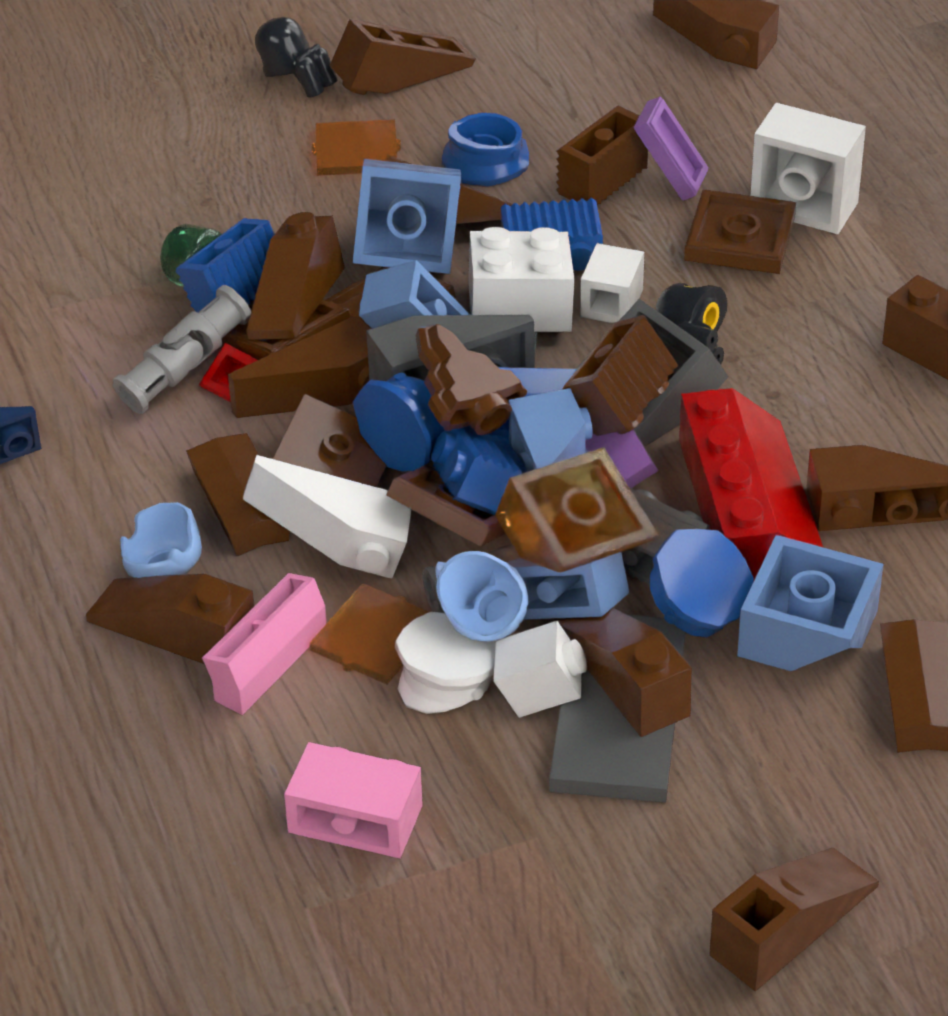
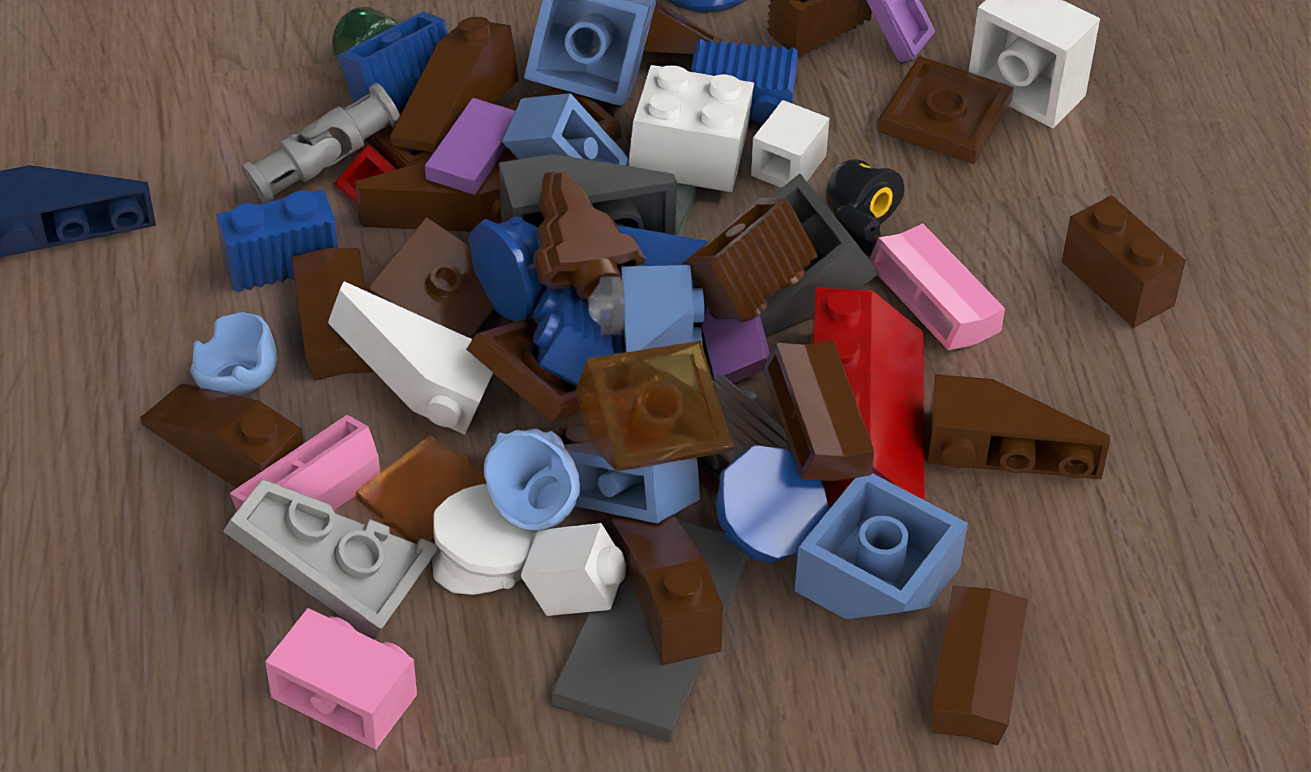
camera: 10 degrees right, 5 degrees up
(153, 440) = (265, 237): none -> blue brick
(313, 697) = (338, 561): none -> light grey wing
(328, 326) = (470, 147): none -> medium lavender tile
(509, 433) = (608, 305): none -> clear tile
(725, 492) = (819, 412): none -> reddish brown piece
(783, 381) = (937, 288): none -> bright pink piece

